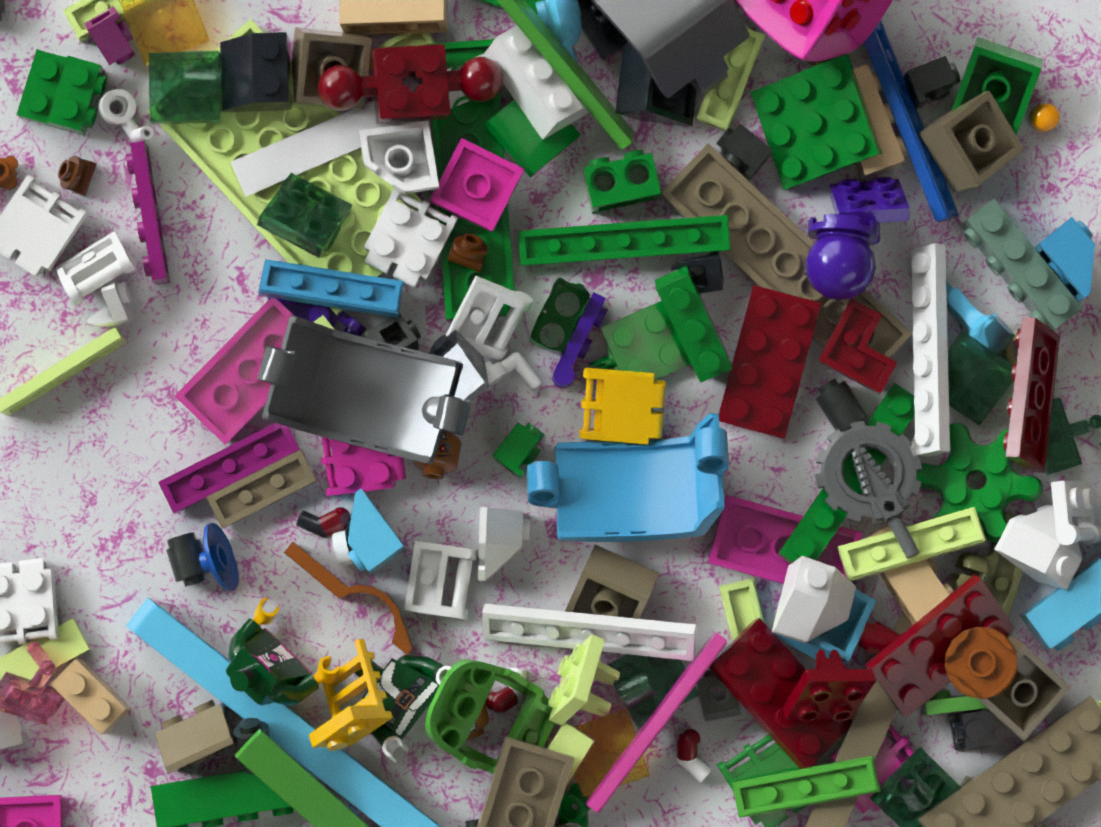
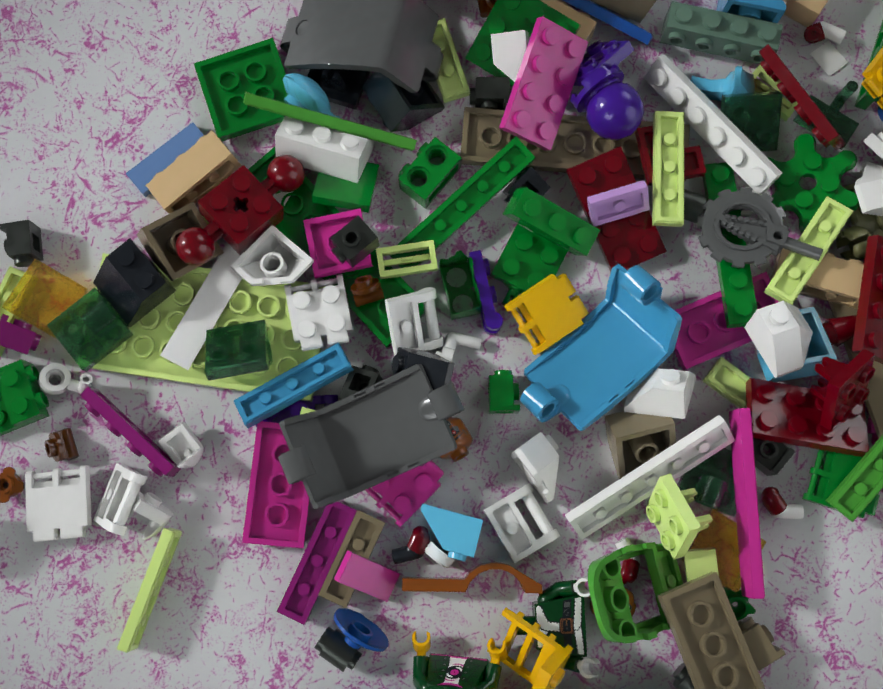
camera: 35 degrees left, 5 degrees down
(186, 263) = (182, 446): none -> white plate
(262, 515) = (366, 576): none -> dark pink tile
(489, 199) = (354, 242): none -> pearl dark grey brick
(503, 237) = (384, 274): none -> yellowish green tile
(664, 567) = (662, 394): none -> white slope
(768, 357) = (618, 203): none -> lavender plate
(788, 136) = (509, 50): none -> white slope
(794, 185) = (543, 84): none -> dark pink plate
(845, 361) = (668, 169): none -> yellowish green tile

